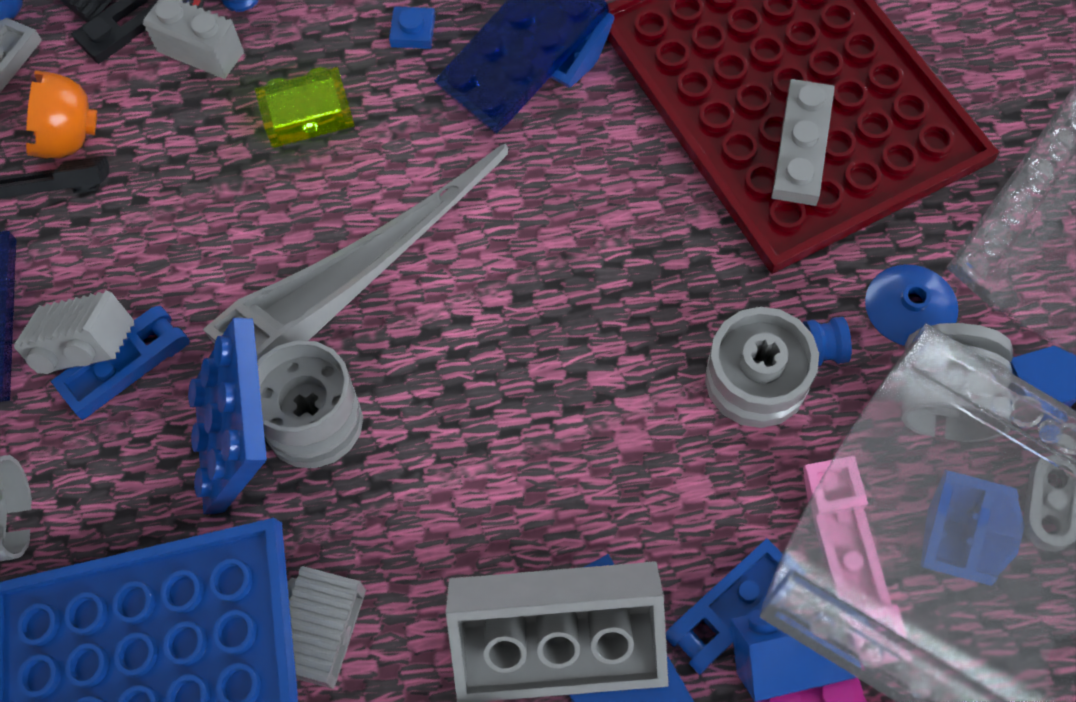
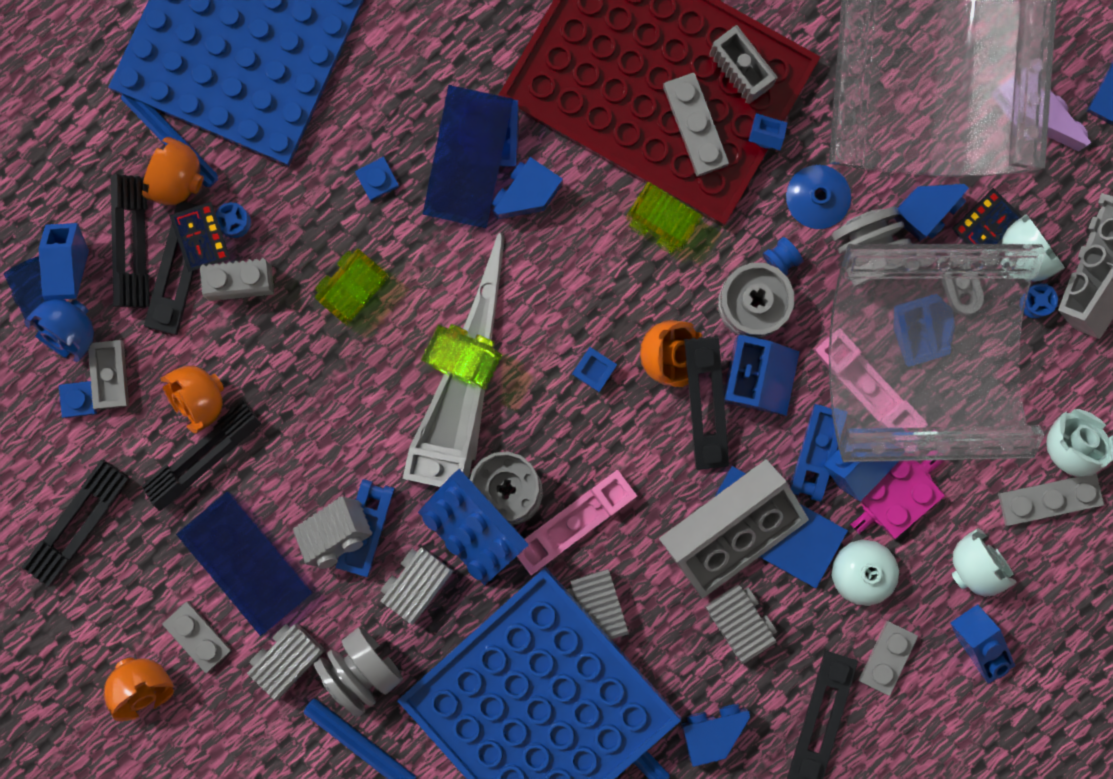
camera: 40 degrees left, 20 degrees up
(122, 459) = (416, 585): none -> light grey brick
(361, 504) = (575, 521): none -> bright pink slope
(366, 231) = (462, 356): none -> clear neon green brick
(511, 340) = (594, 369): none -> blue plate
(563, 115) = (529, 192): none -> blue slope
(591, 515) = (705, 357): none -> black container
(618, 366) = (664, 352): none -> orange cylinder
(703, 221) = (663, 218): none -> clear neon green brick
(714, 459) = (760, 375): none -> blue slope
(887, 187) = (768, 132): none -> blue plate
(898, 98) = (742, 64): none -> light grey brick

